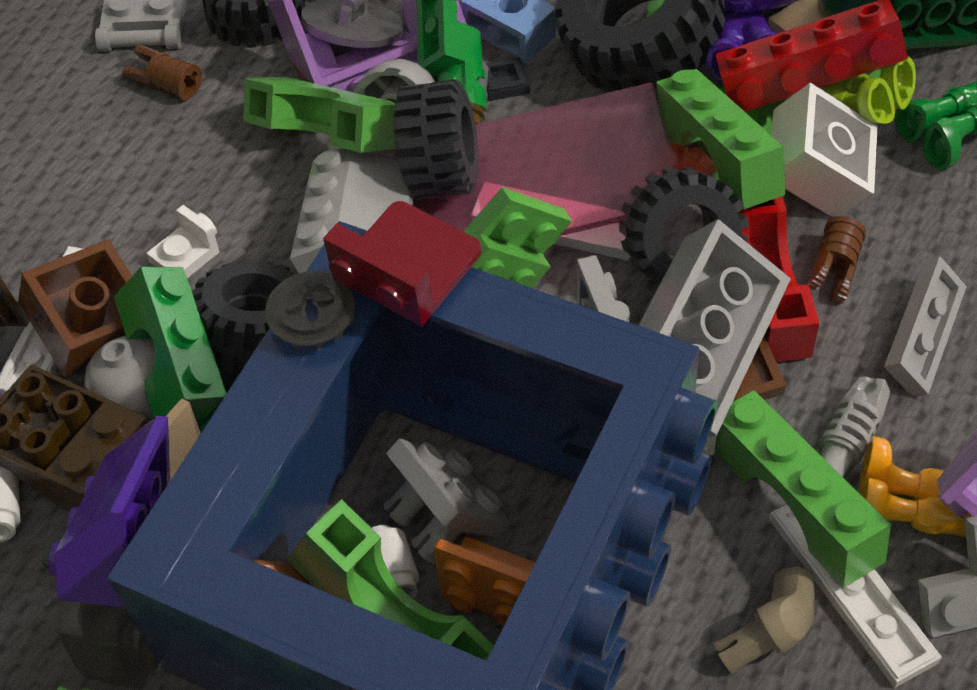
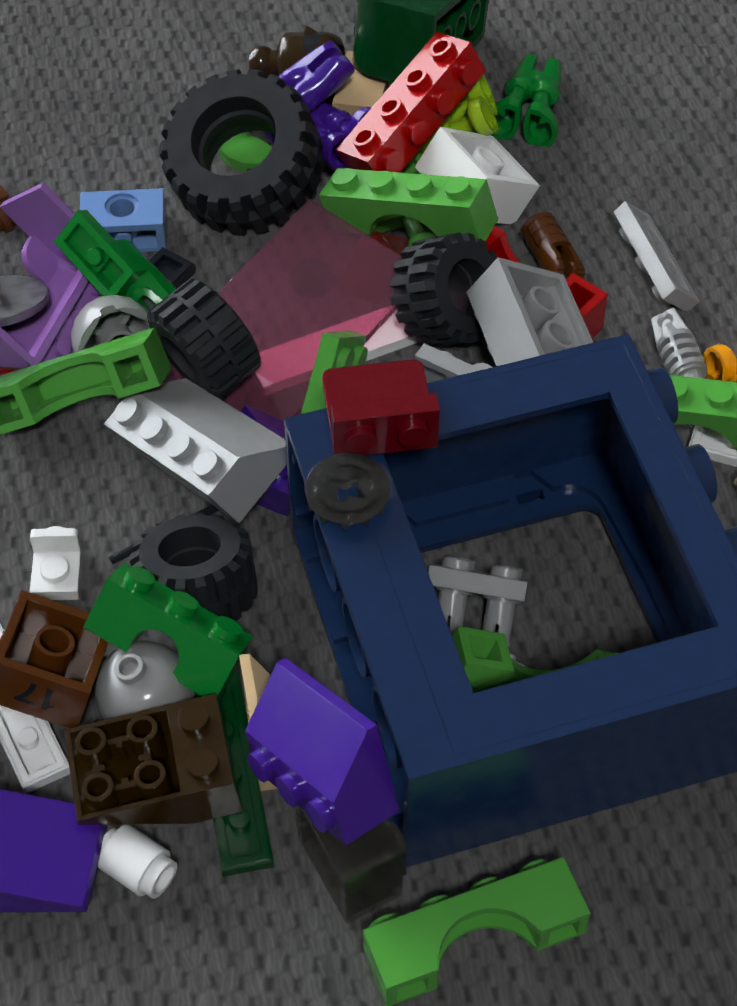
camera: 45 degrees left, 0 degrees up
(480, 577) = (575, 622): orange bracket -> none

